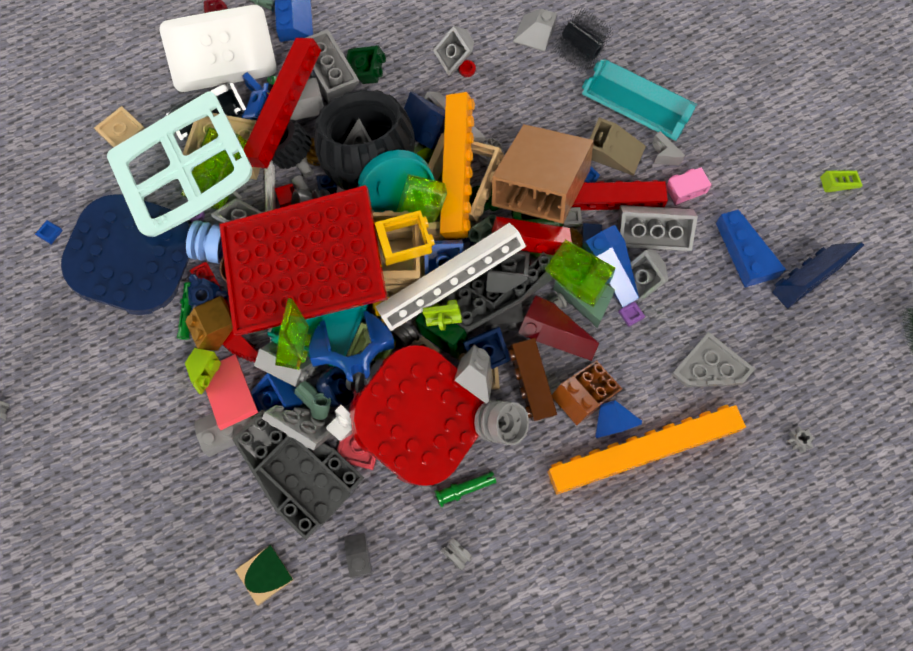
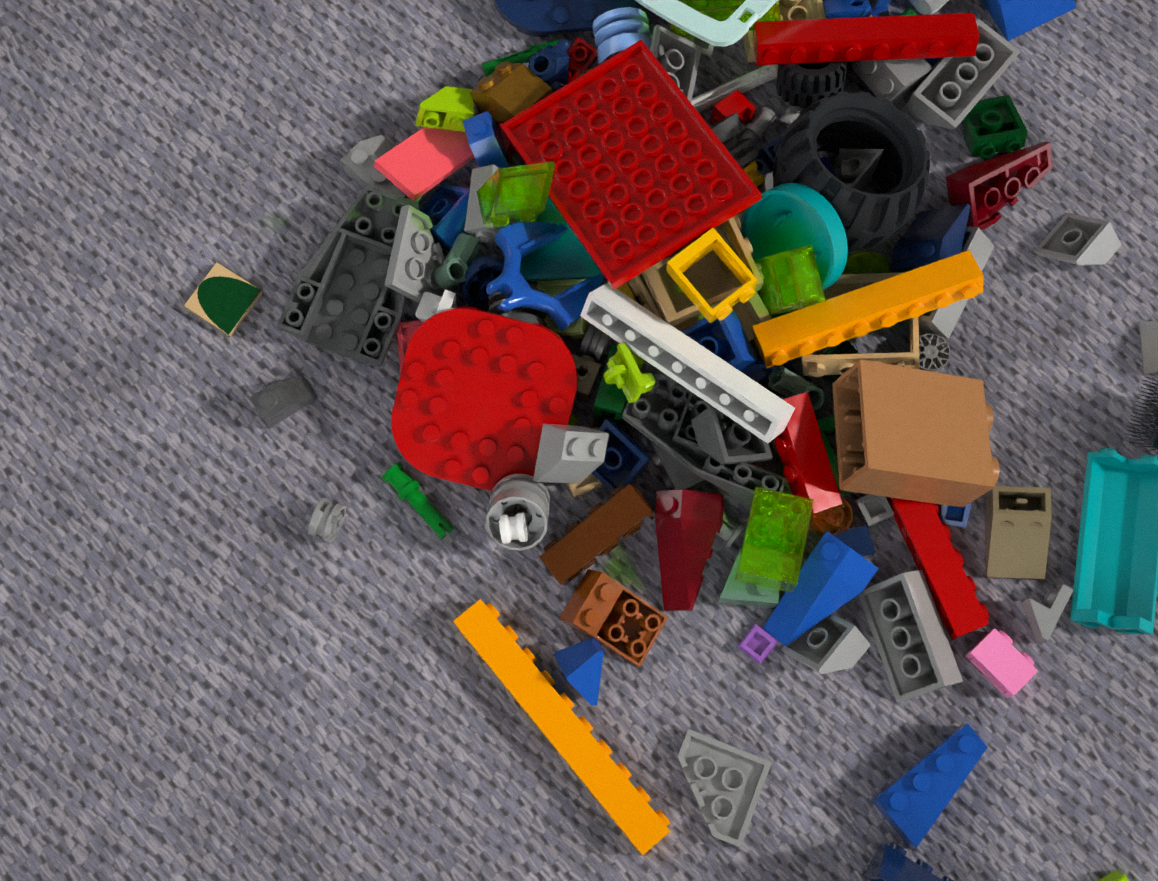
camera: 70 degrees right, 5 degrees up
(238, 351) = (486, 140): none -> blue slope
(398, 75) = (997, 181): none -> dark red wedge
(467, 68) = (1058, 273): red tile -> none
(514, 427) = (513, 528): none -> white wheel

